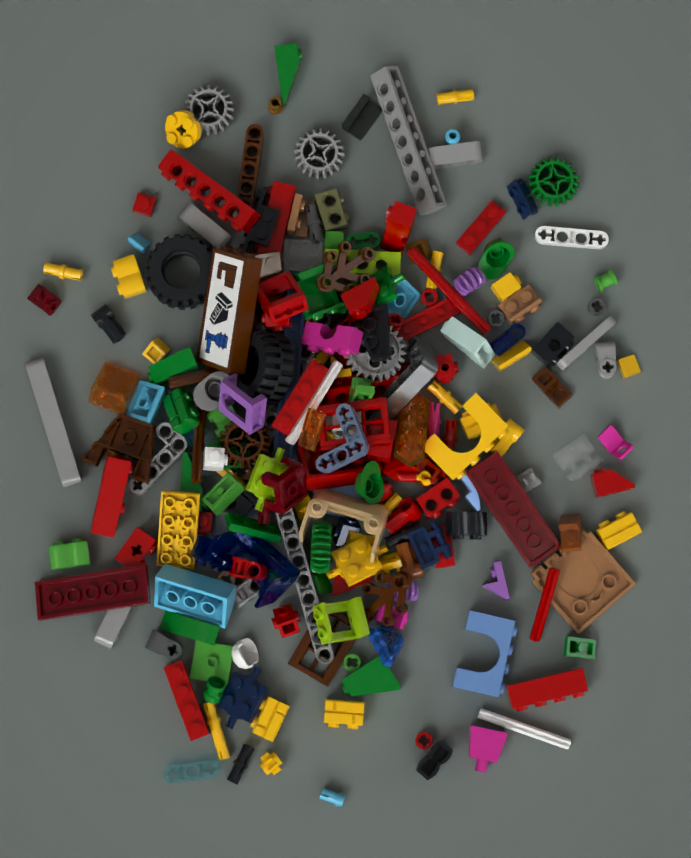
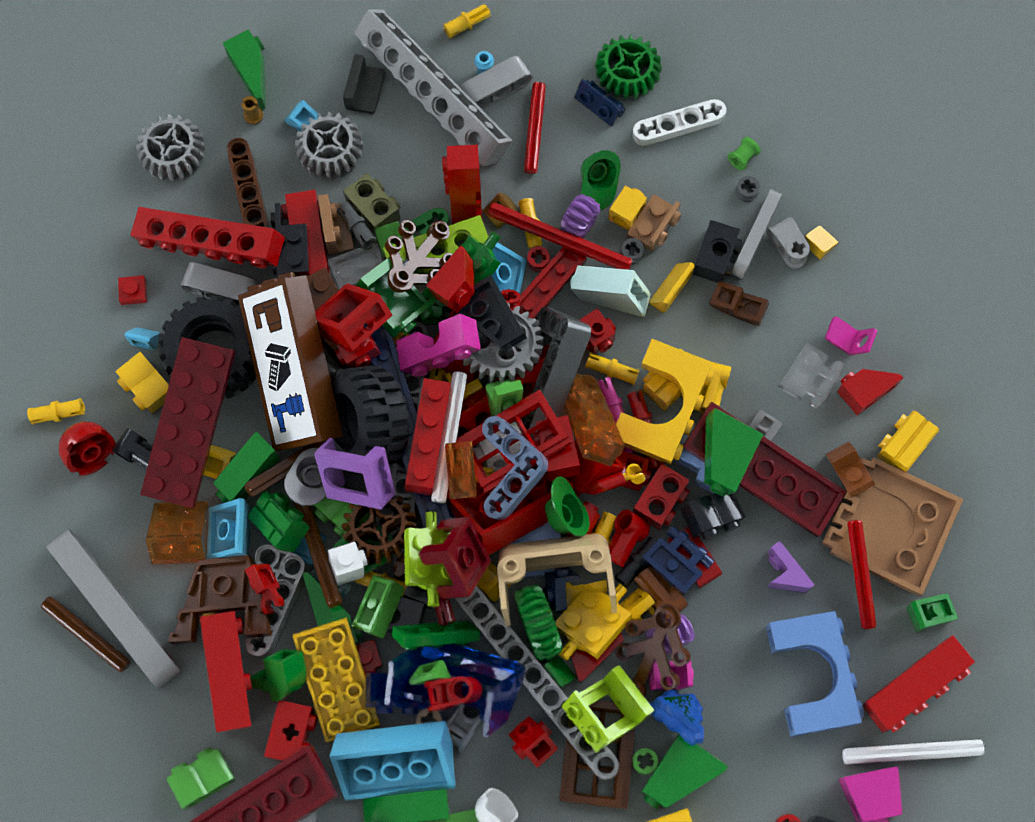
camera: 20 degrees left, 10 degrees down
(29, 431) = (85, 634): none -> reddish brown axle
(44, 299) = (43, 456): dark red bracket -> none
(73, 305) = (85, 447): none -> red cylinder
(145, 511) = (282, 674): none -> green brick
(147, 320) = (188, 422): none -> dark red plate
(156, 449) = (265, 583): none -> red plate
(174, 133) = (132, 182): yellow plate -> none
(239, 550) = (430, 672): none -> bright green slope
(308, 122) = (300, 115): none -> medium azure slope
(468, 199) = (534, 128): none -> red axle
(480, 227) = (564, 154): red plate -> none
(491, 489) = (727, 451): none -> green slope
(506, 340) = (659, 268): clear blue piece -> none

